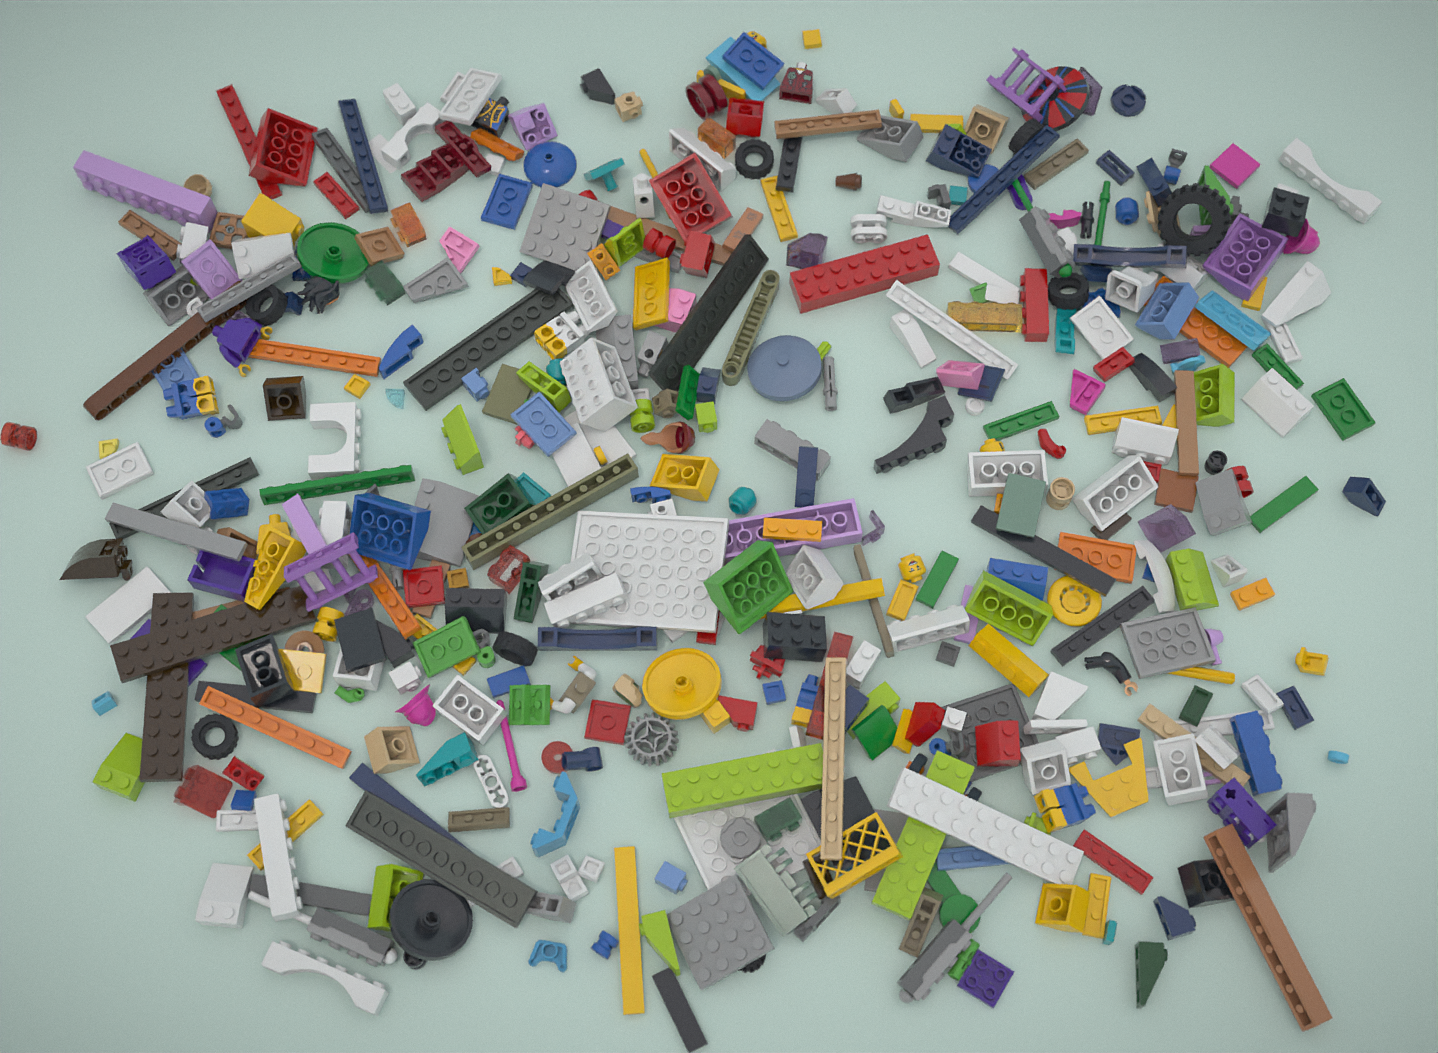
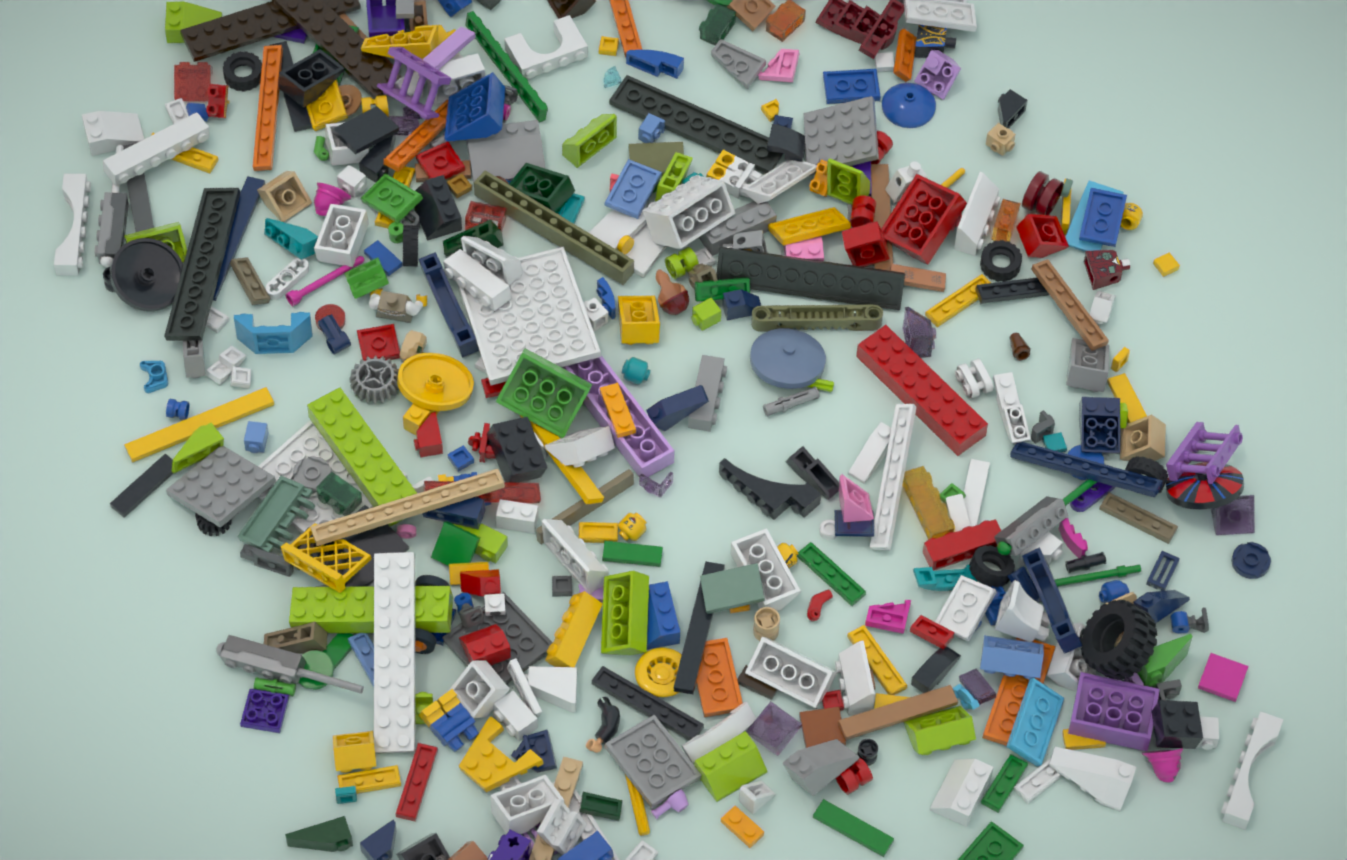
camera: 65 degrees right, 10 degrees down
(605, 172) = (917, 146): teal tile -> none

